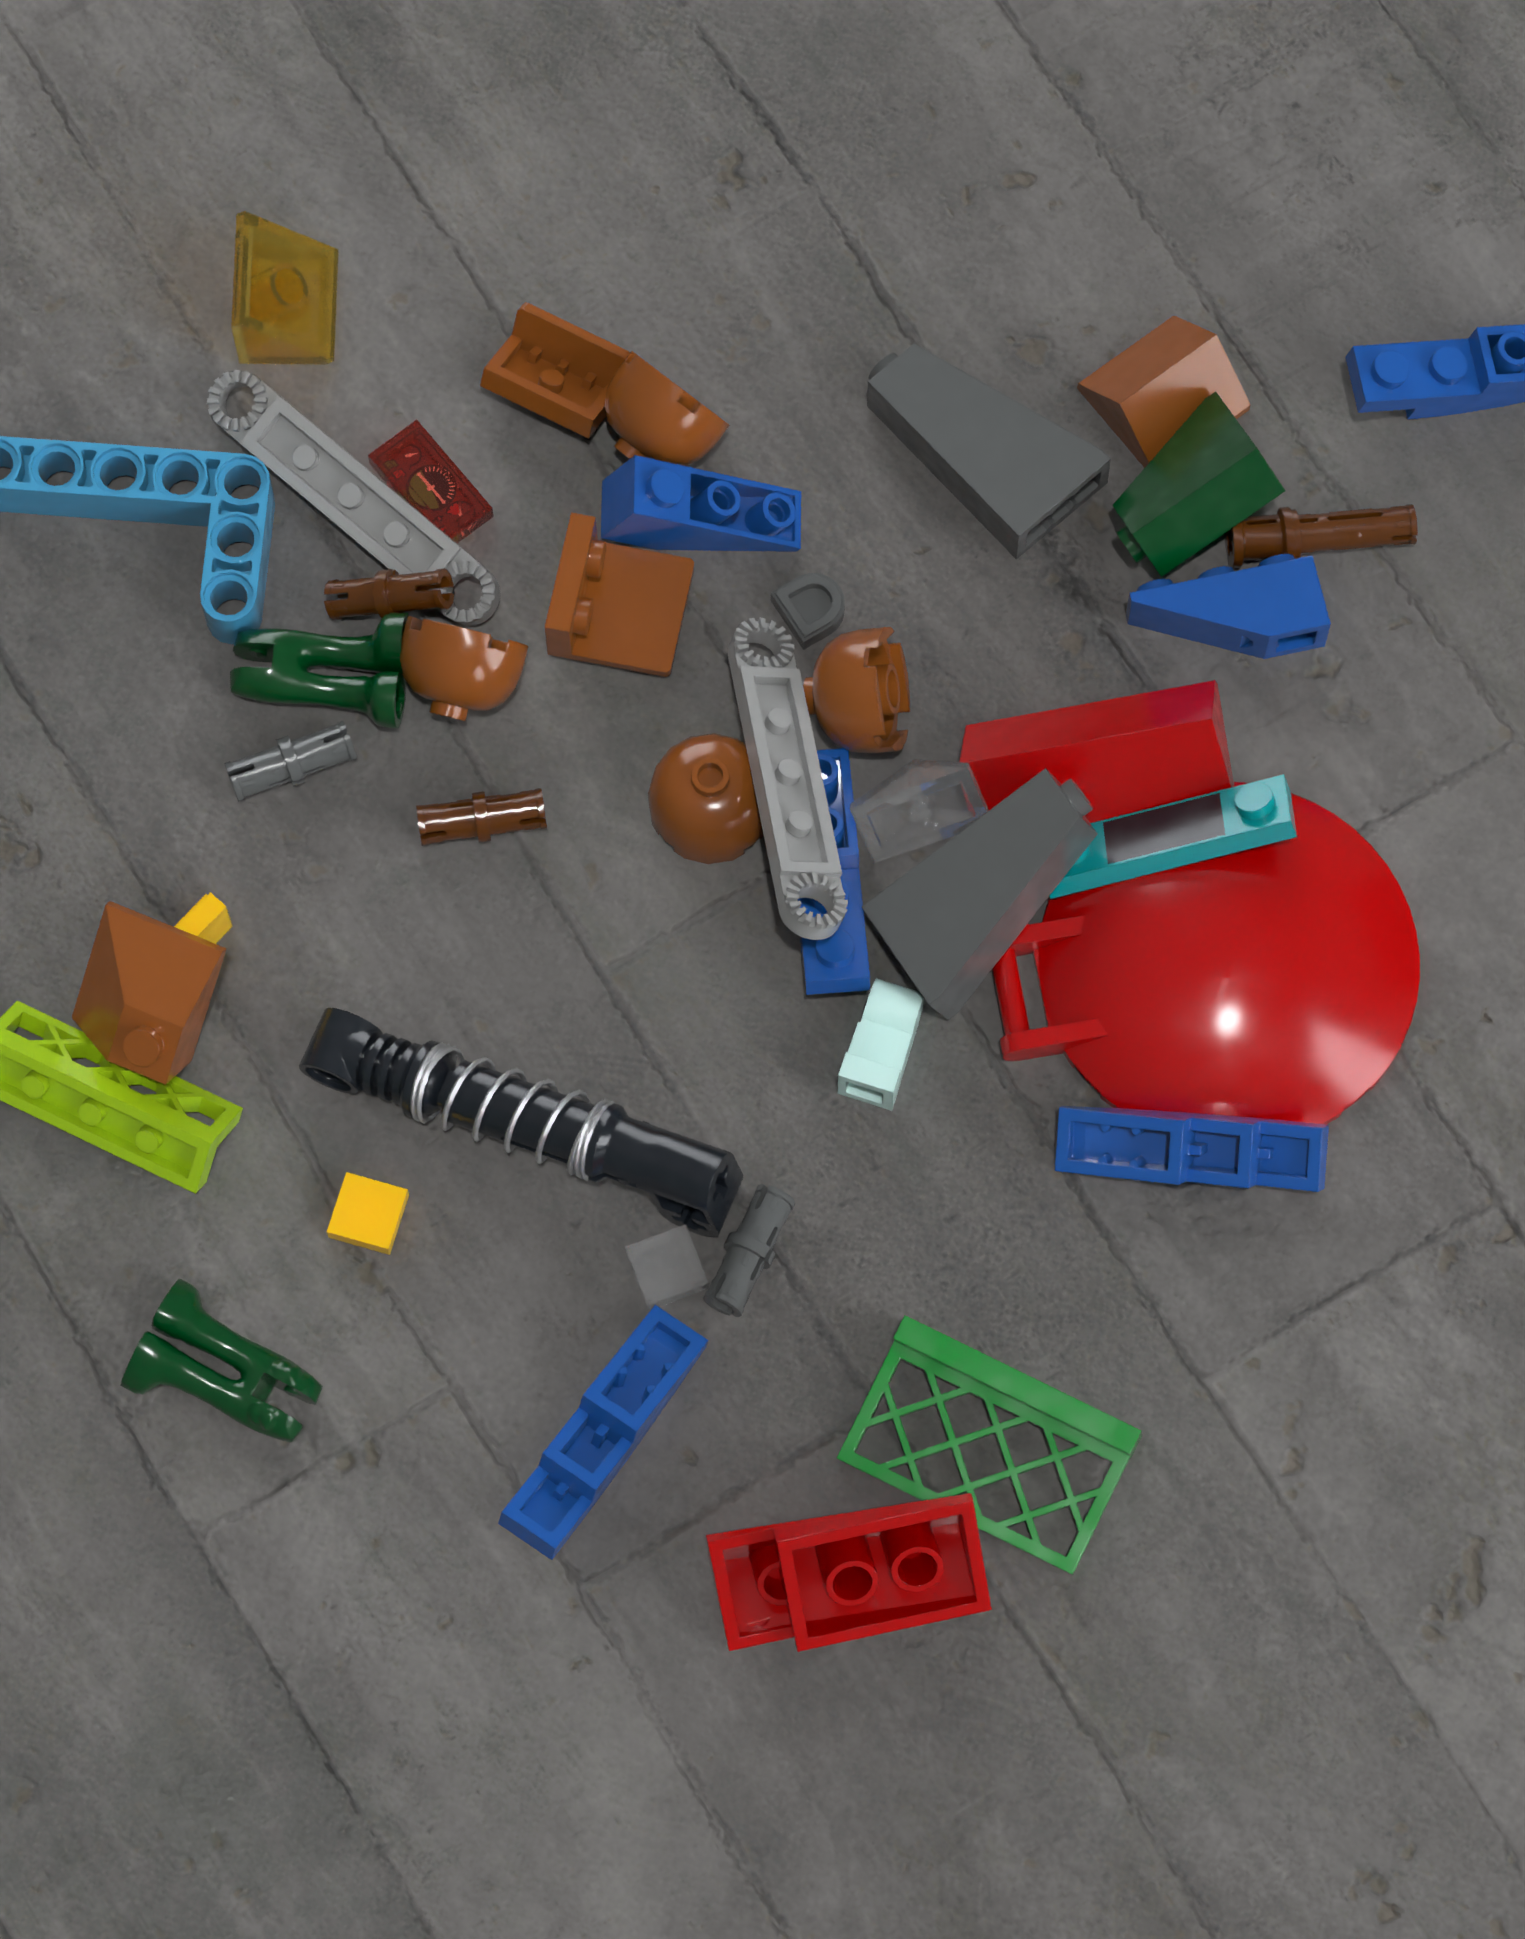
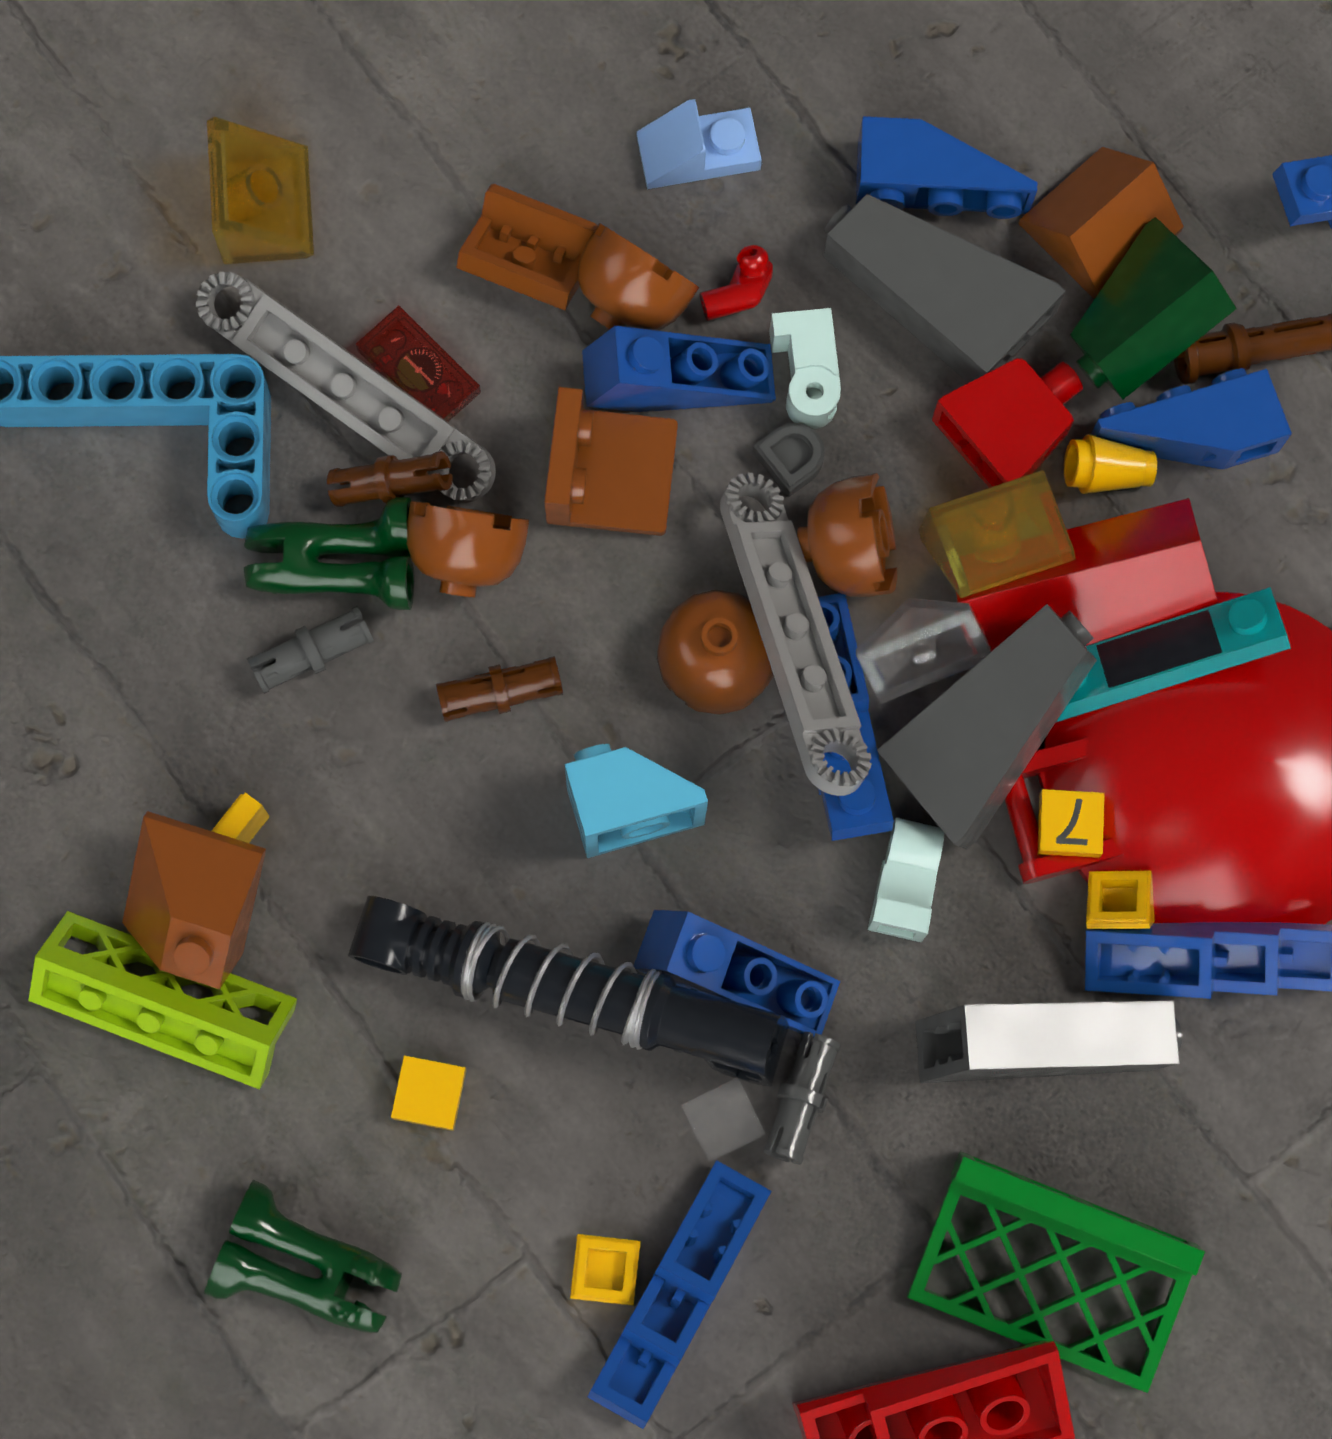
camera: 10 degrees left, 5 degrees up
(530, 1403) = (605, 1269): none -> yellow tile
(602, 934) = (628, 799): none -> medium azure slope
(680, 1101) = (736, 968): none -> blue slope
(746, 283) = (695, 147): none -> light blue slope
(780, 431) = (745, 288): none -> red arm
(841, 530) = (812, 364): none -> light aqua leg
(982, 323) = (929, 169): none -> blue slope
(1006, 1212) = (1046, 1040): none -> slope
(1009, 698) = (997, 535): none -> clear yellow slope
(1040, 589) = (1009, 419): none -> red torso
(1054, 997) = (1071, 823): none -> yellow tile
(1099, 1080) = (1120, 900): none -> yellow slope
(1139, 643) = (1107, 465): none -> yellow cone

